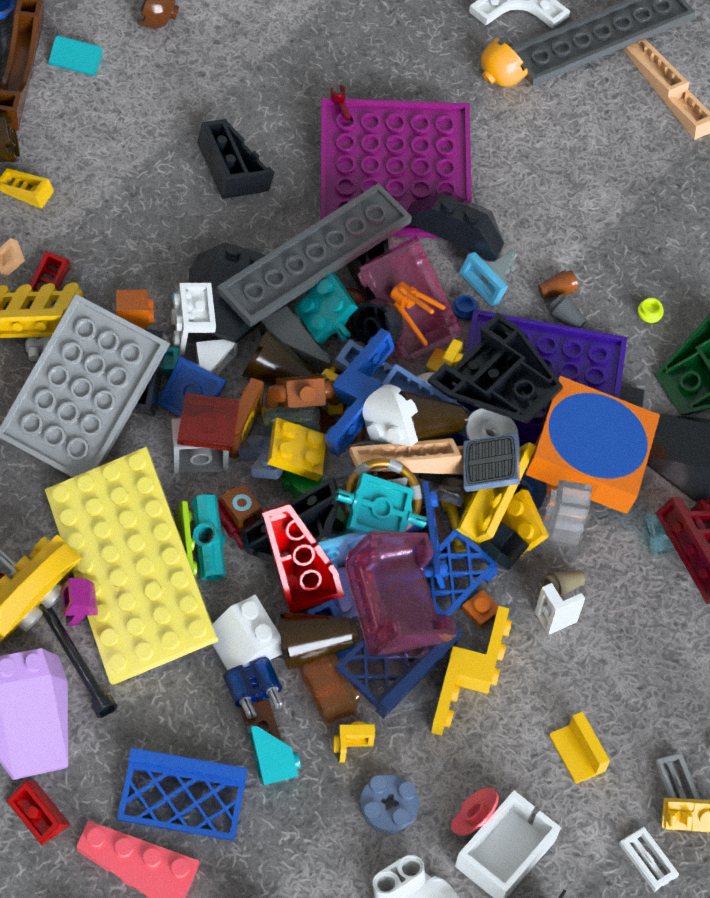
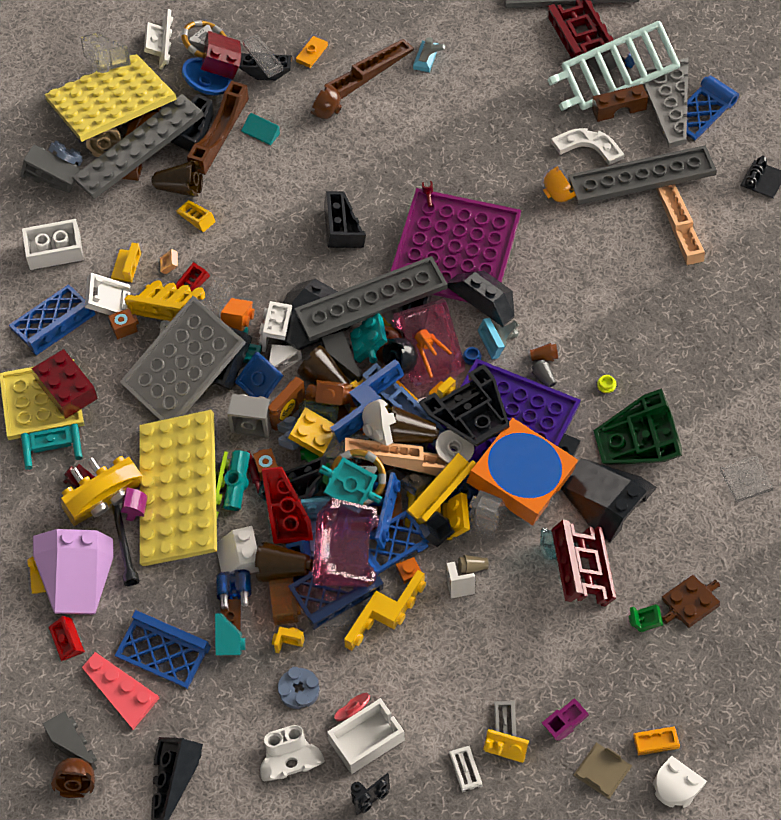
camera: 25 degrees right, 0 degrees up
(208, 422) = (255, 401): clear red tile -> none
(491, 462) = (442, 468): tile -> none
(580, 749) = (442, 682): yellow panel -> none

